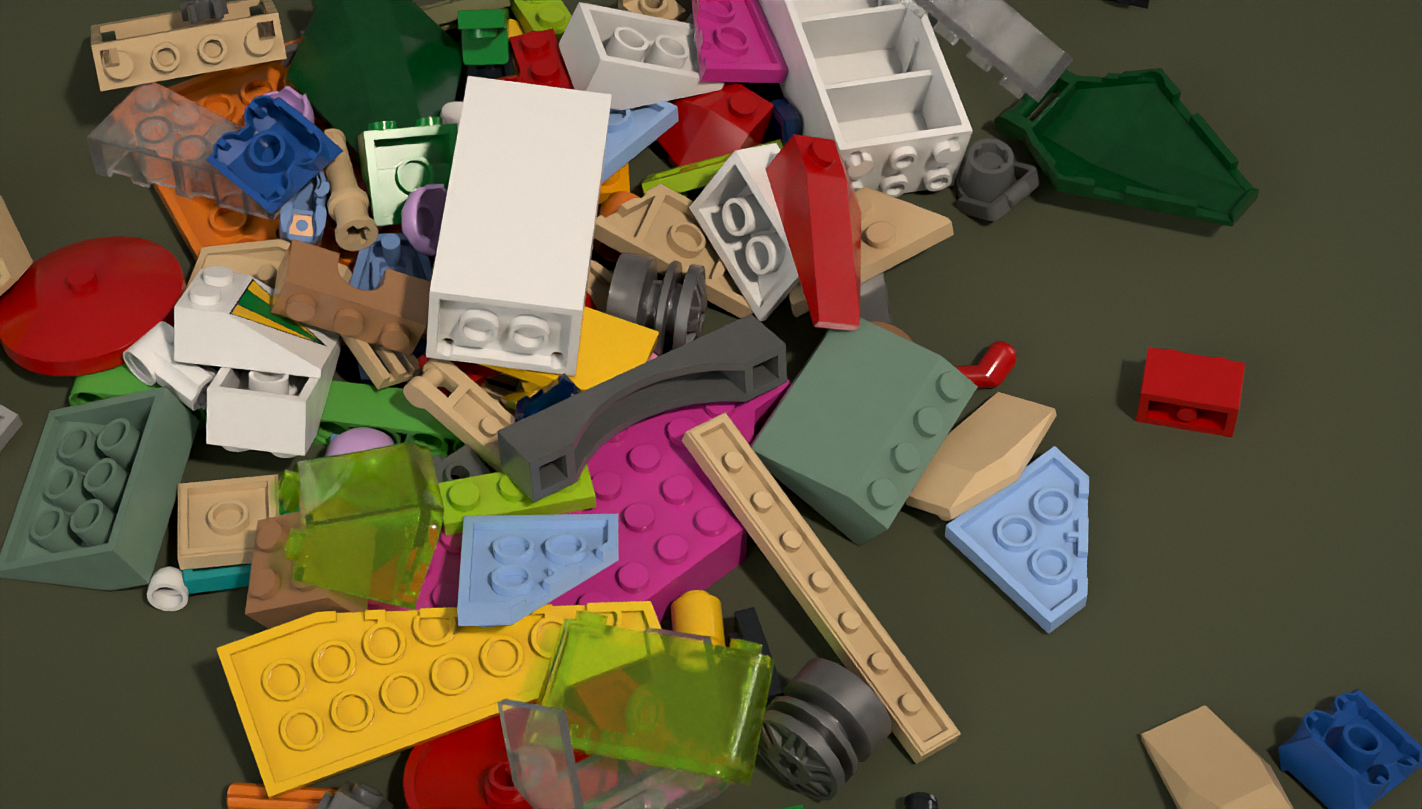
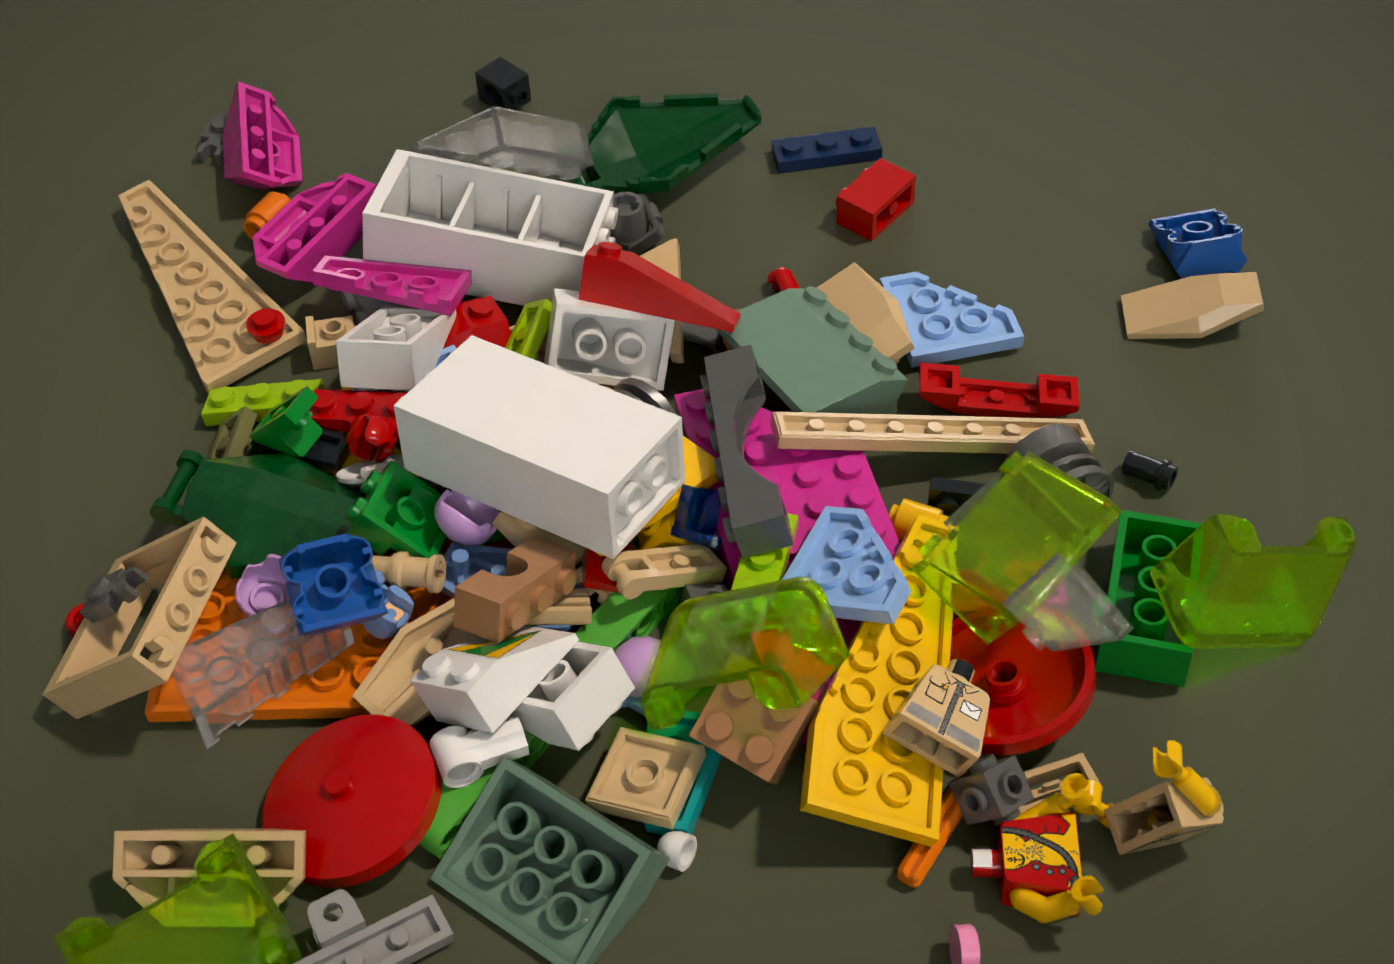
camera: 60 degrees left, 5 degrees down
(397, 728) = (943, 717): none -> tan torso
(784, 121) = (508, 299): dark blue tile -> none
(941, 630) = (1048, 398): none -> red slope
(1256, 314) = (826, 149): none -> dark blue plate

